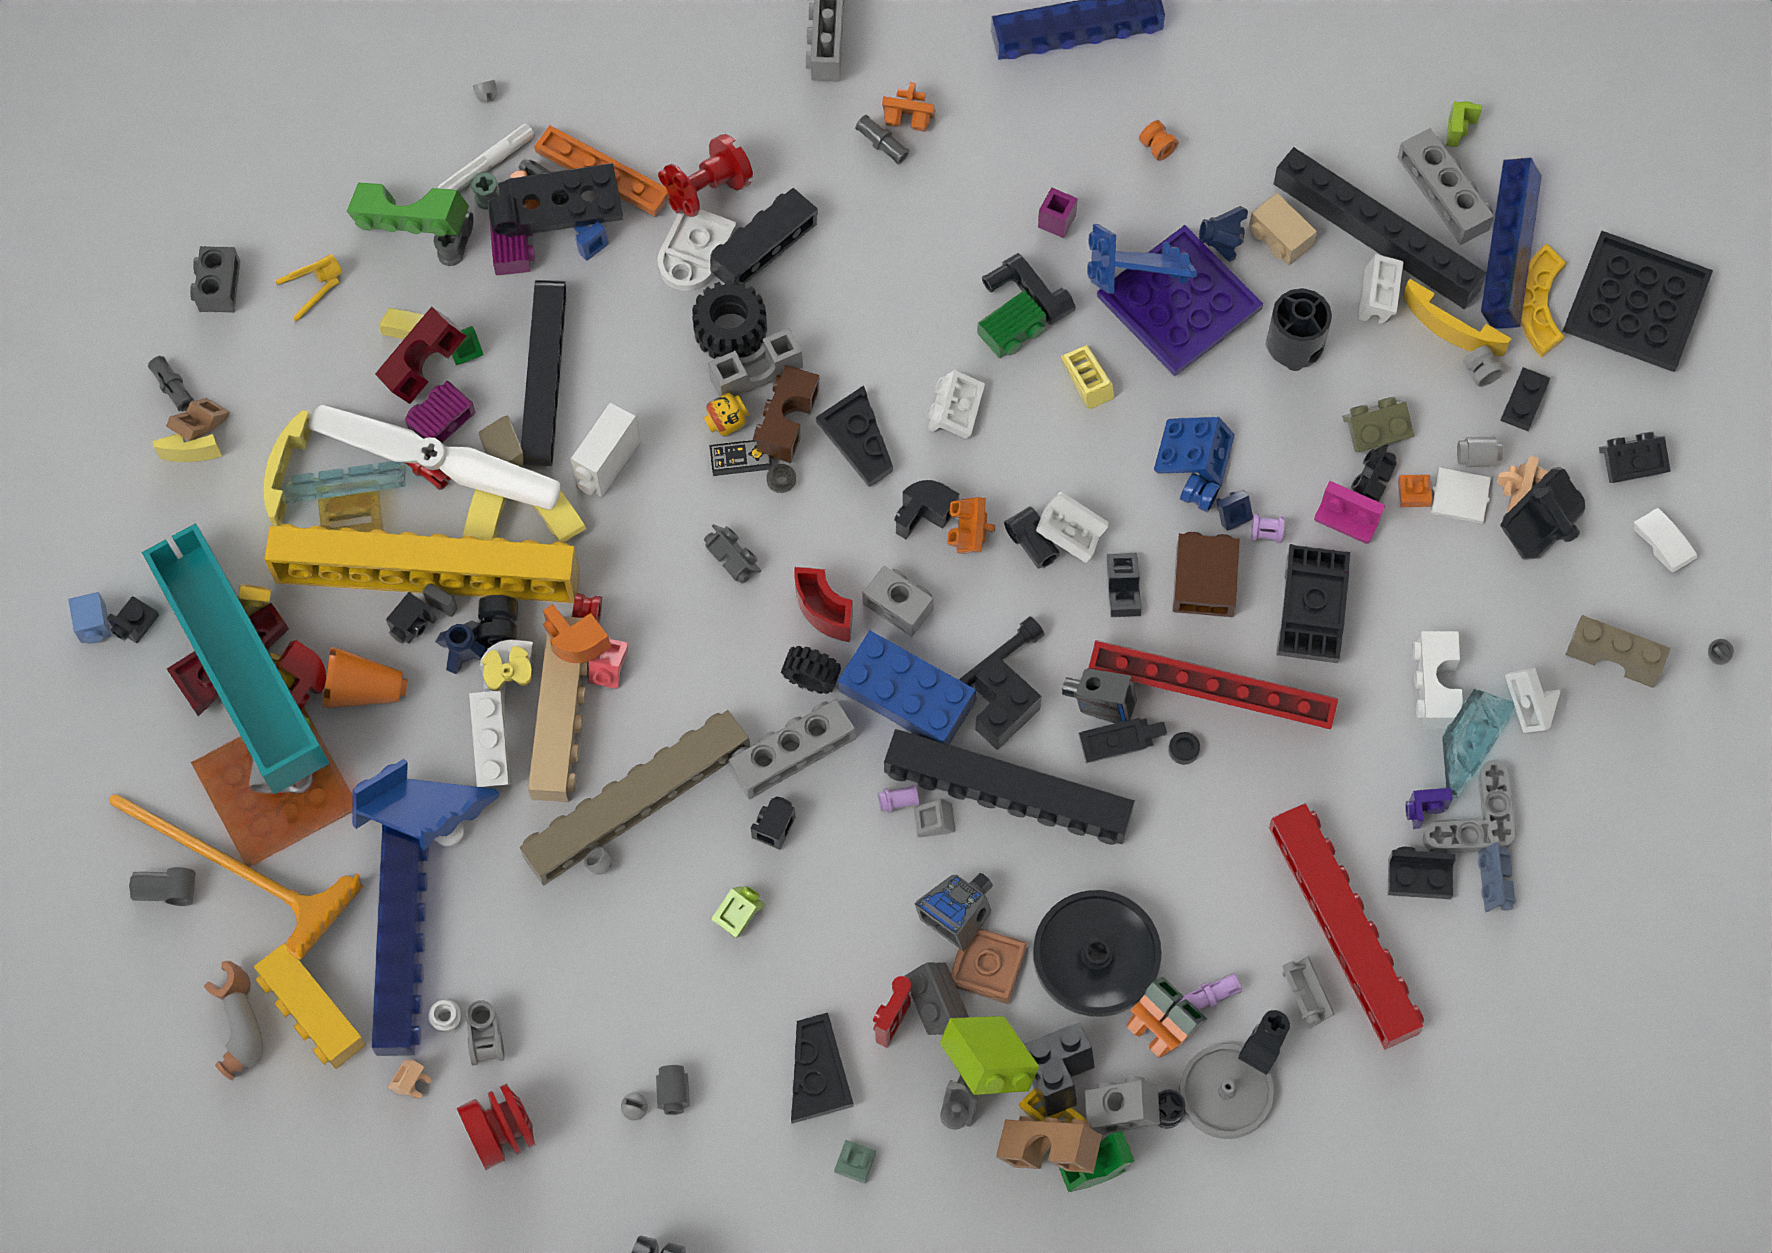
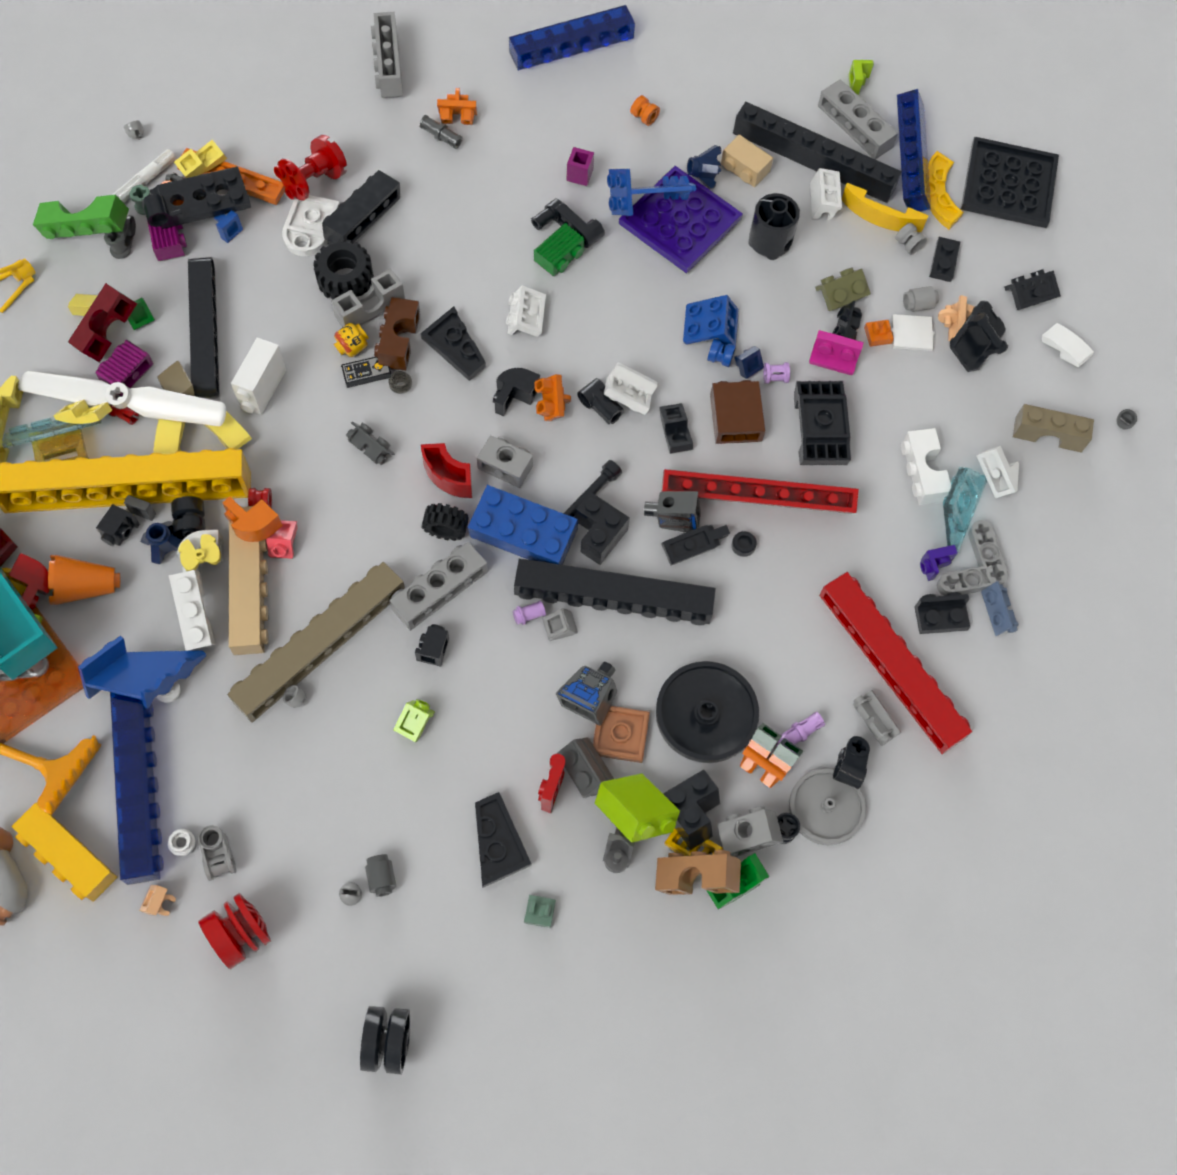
camera: 15 degrees left, 0 degrees up
(381, 470) = (81, 414): none -> light yellow slope
(565, 148) = (197, 163): none -> light yellow slope
(1092, 393) = (630, 291): light yellow slope -> none

